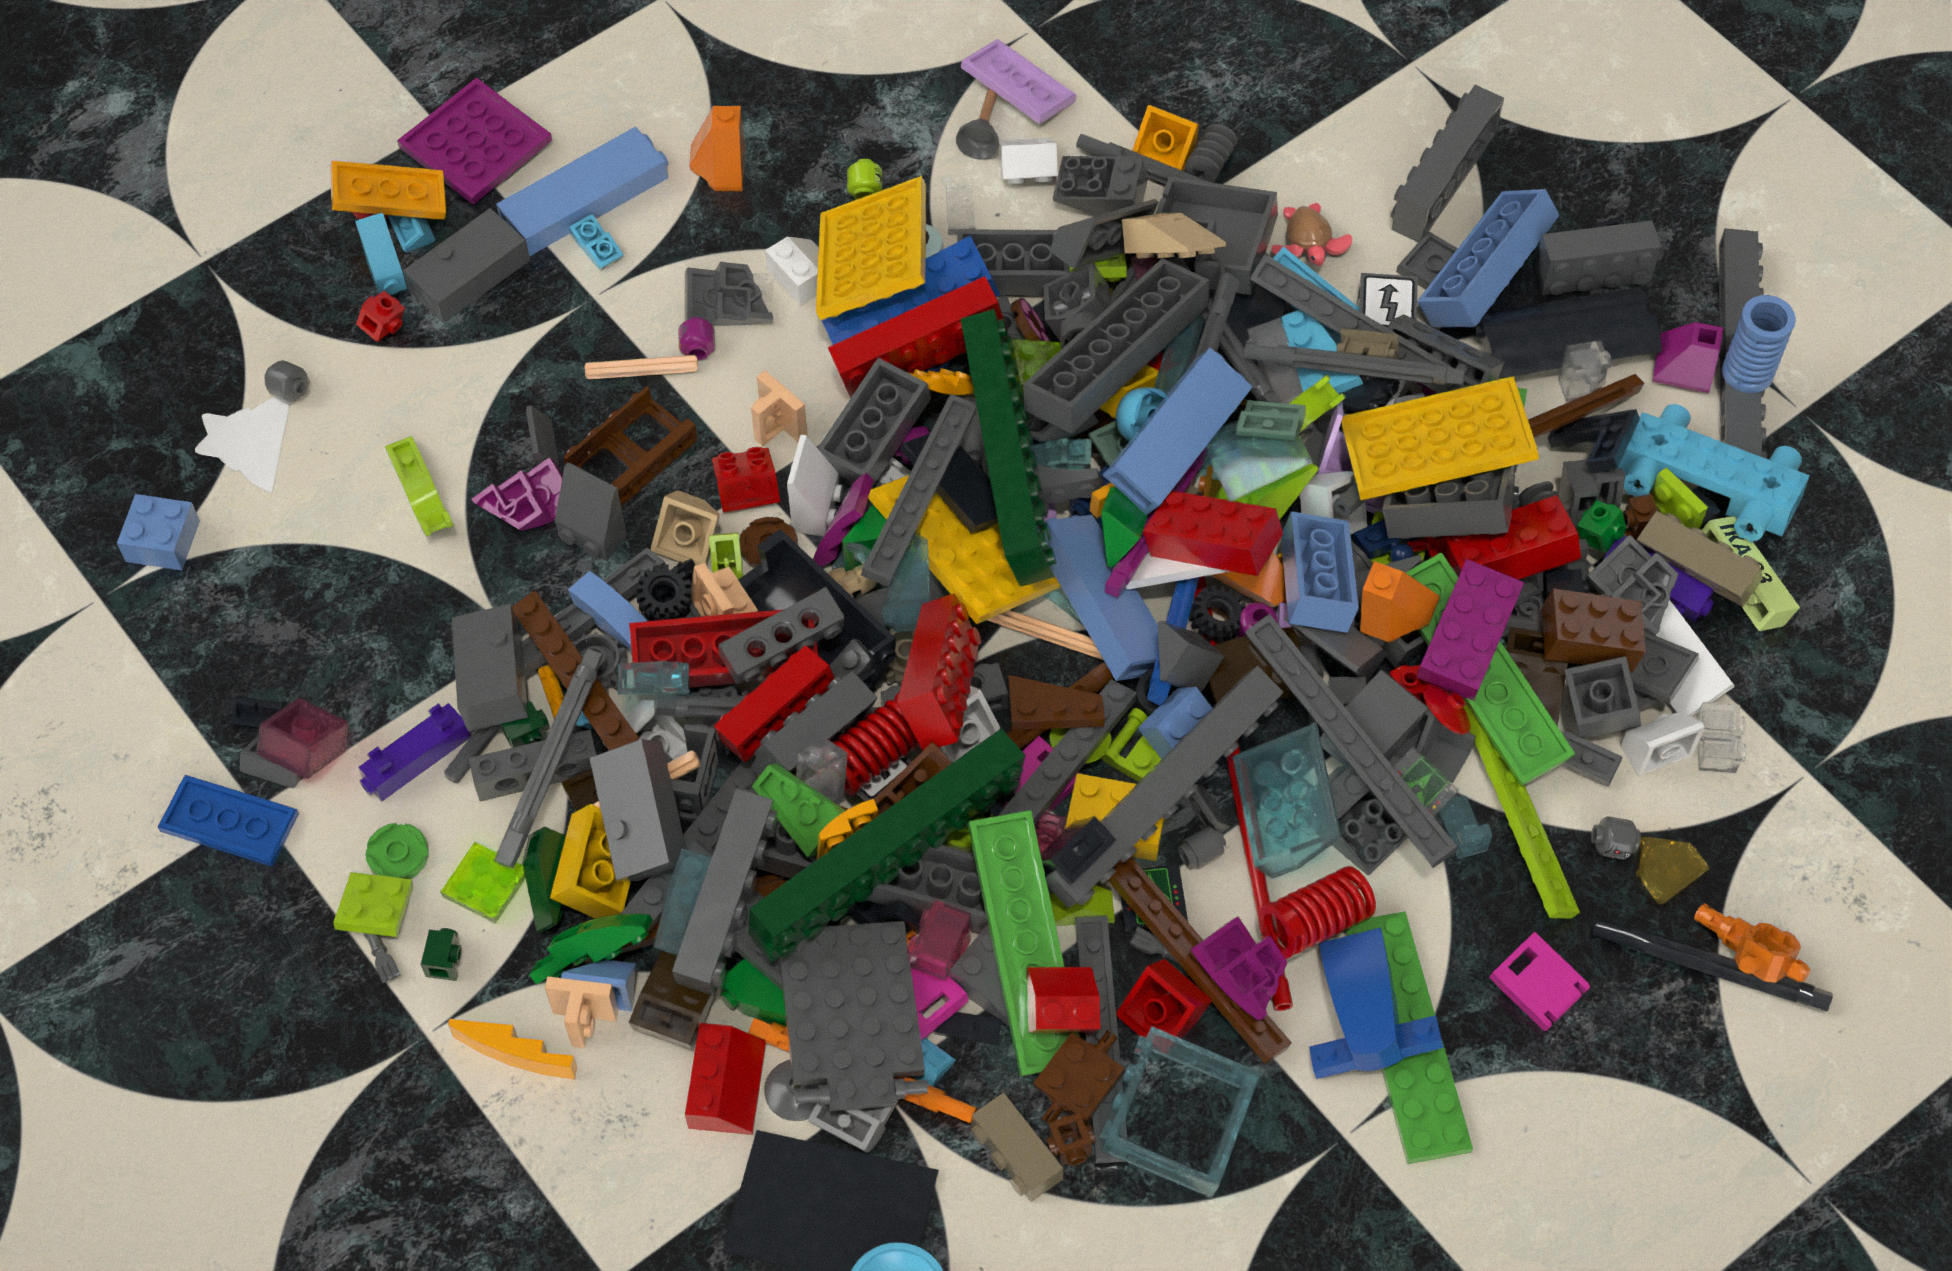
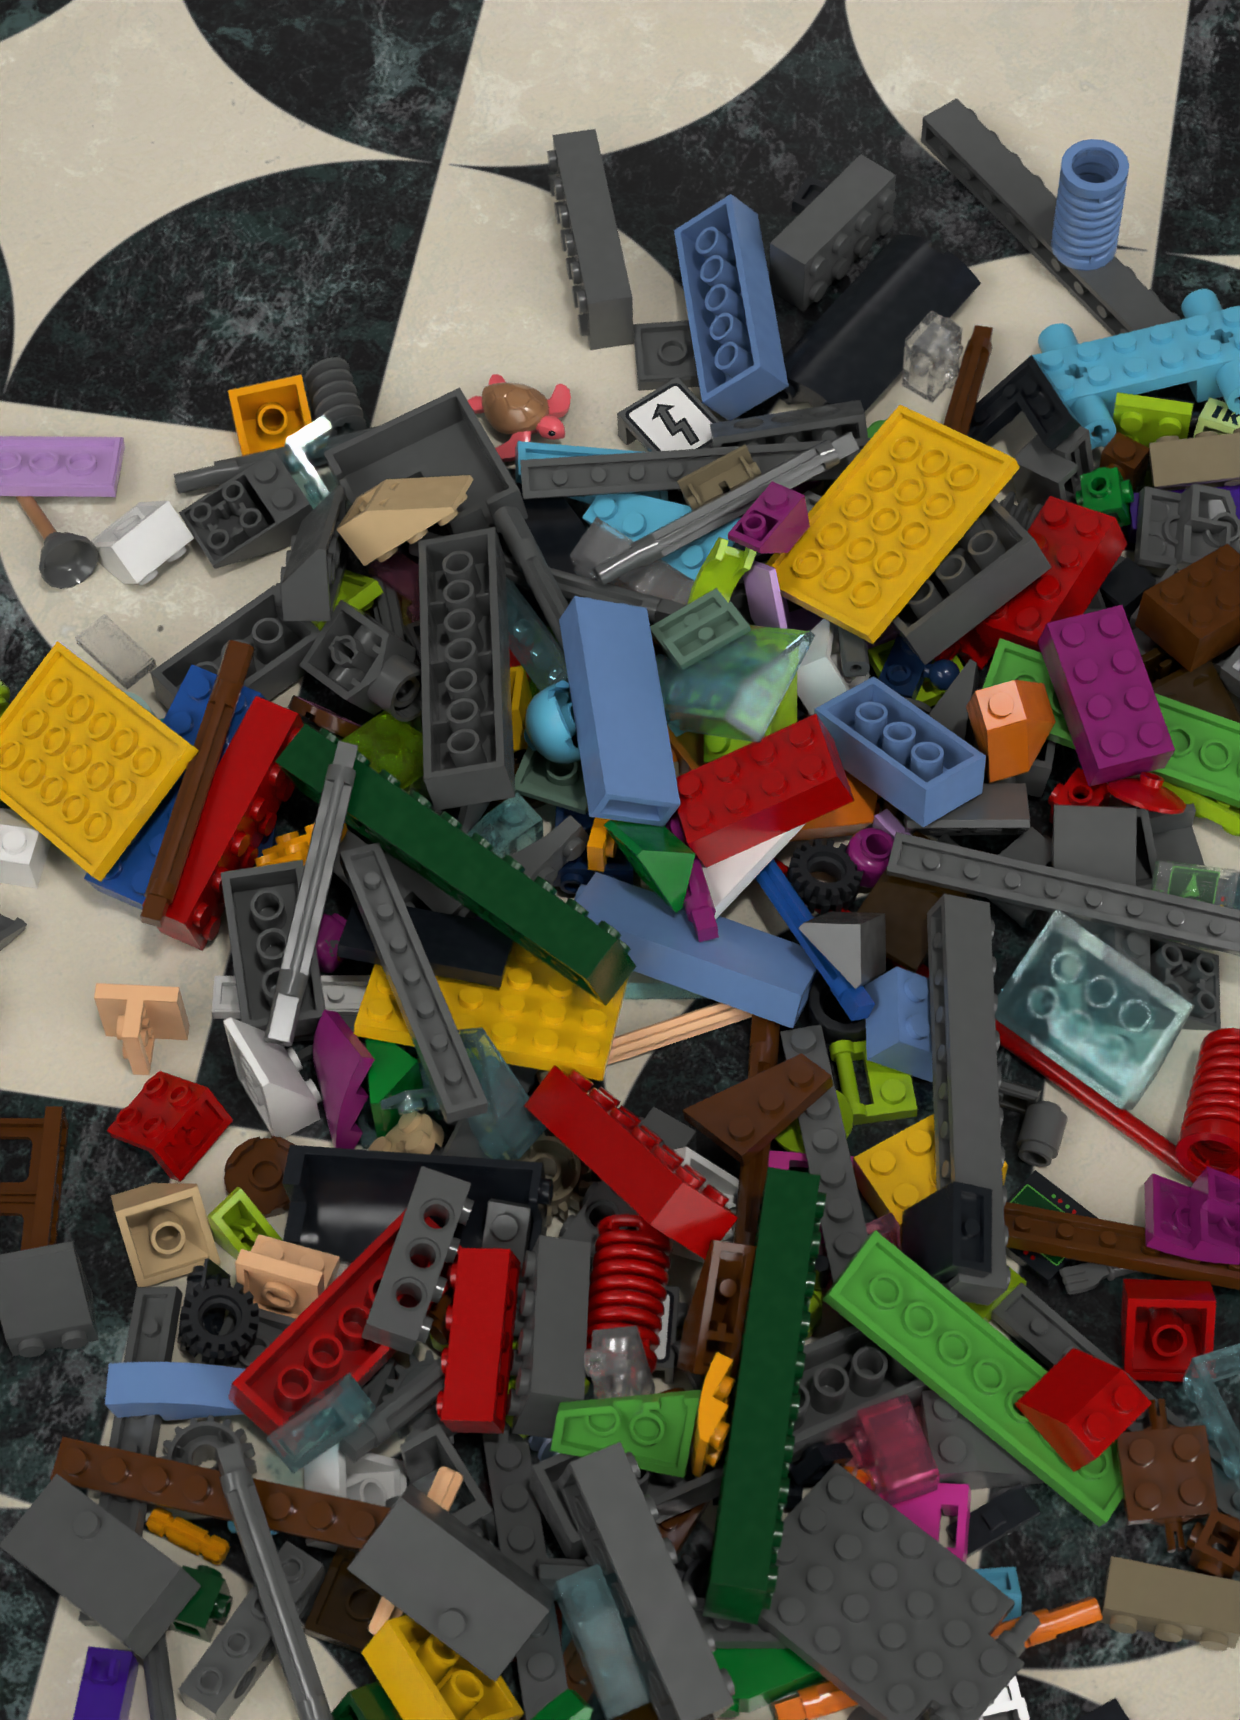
camera: 40 degrees left, 0 degrees up
(910, 299) = (196, 782): none -> reddish brown piece
(911, 403) = (312, 897): none -> dark grey piece
(1168, 164) = (310, 439): none -> clear light blue bracket
(1368, 389) = (772, 521): none -> magenta slope
(1688, 356) = (1011, 270): magenta slope -> none

